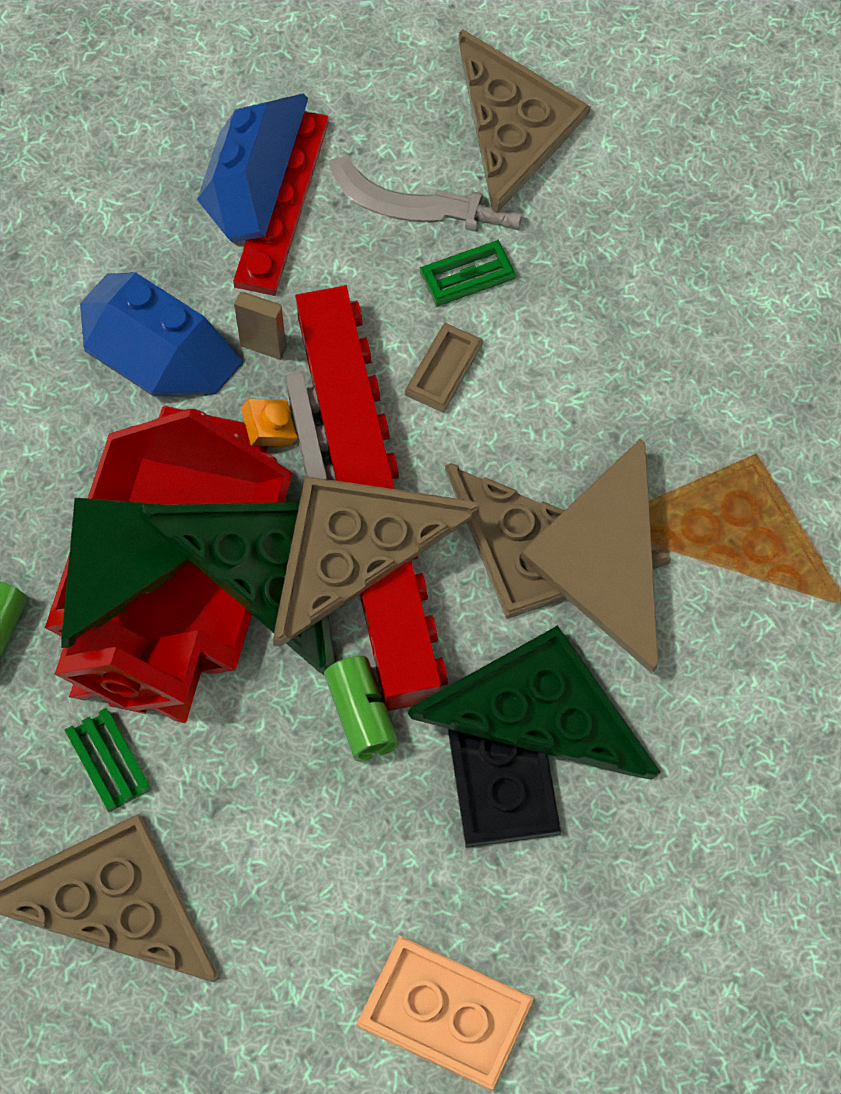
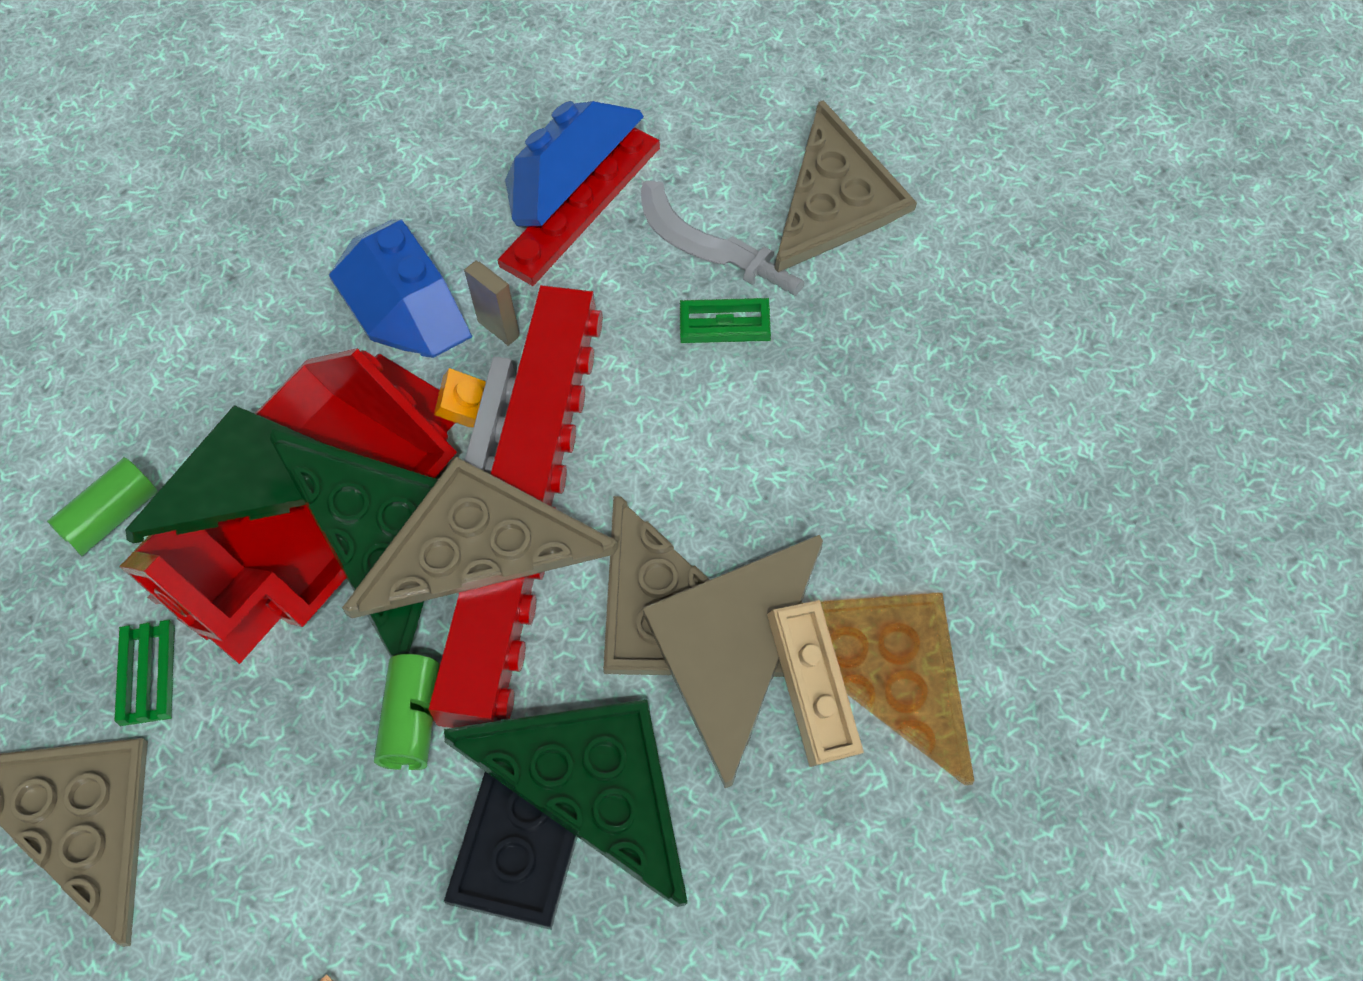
camera: 25 degrees right, 5 degrees down
(443, 367) = (659, 402): dark tan tile -> none
(688, 563) = (815, 683): none -> tan tile

